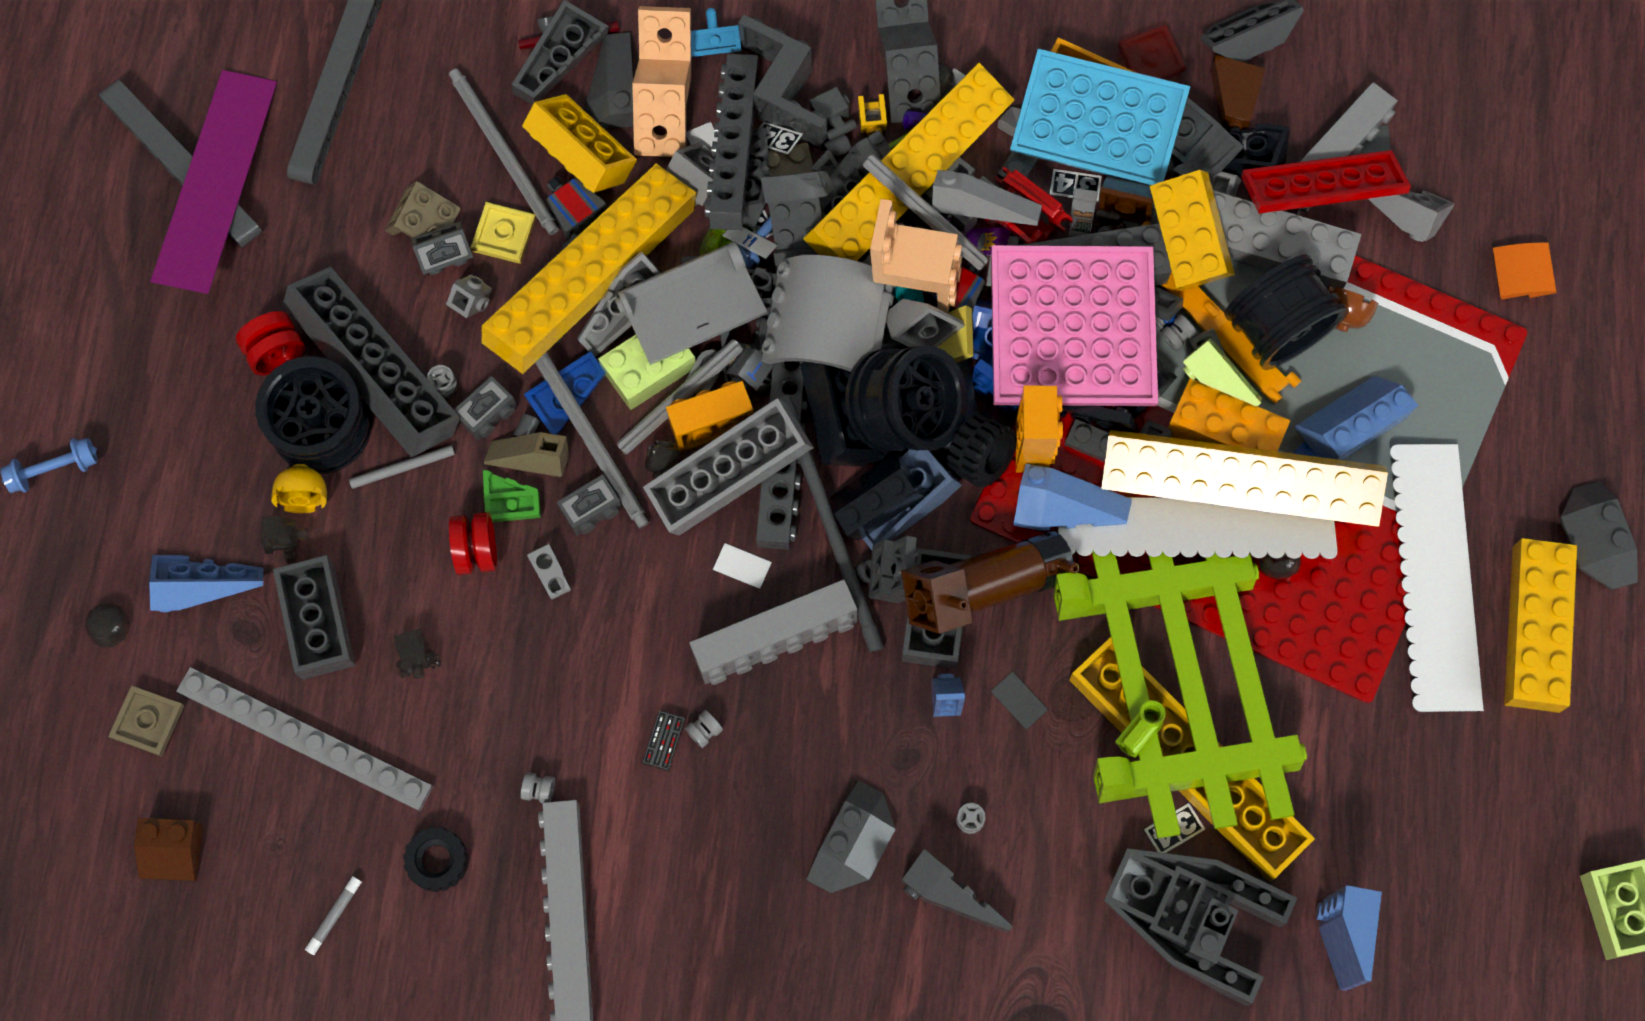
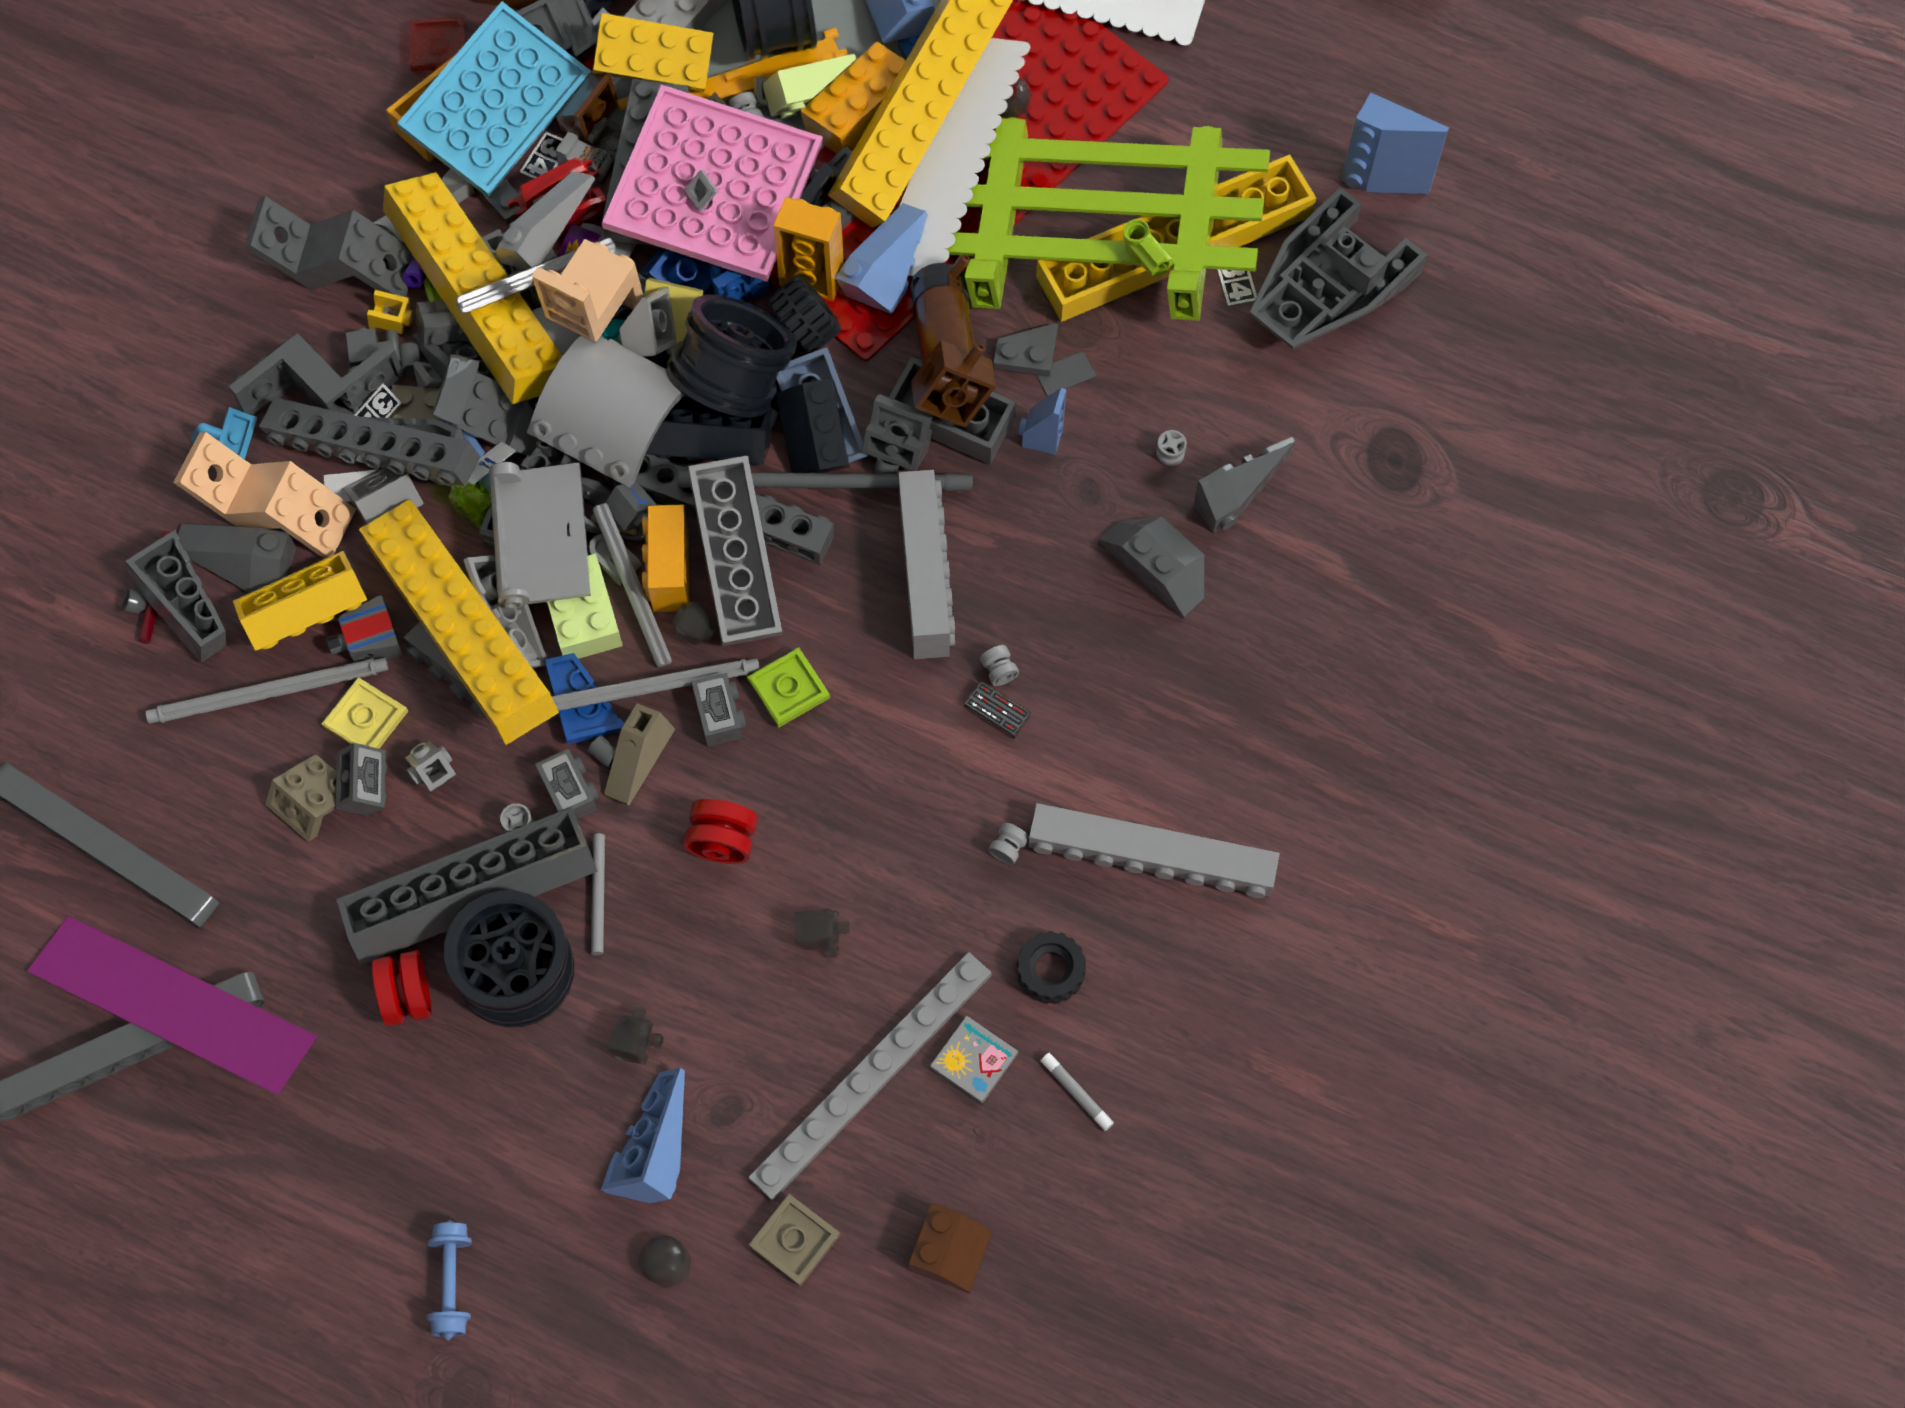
camera: 75 degrees left, 5 degrees down
(299, 489) = (586, 1001): yellow cylinder -> none
(314, 617) = (741, 1022): dark grey brick -> none
(338, 819) = (974, 1059): none -> light grey tile
(509, 500) = (678, 789): bright green wing -> none
(549, 571) = (776, 769): light grey leg -> none
(629, 557) = (788, 687): none -> lime plate
(742, 565) = (835, 585): white sticker -> none
(1027, 659) = (1027, 351): none -> dark grey wing
(1053, 316) = (701, 190): none -> light grey slope

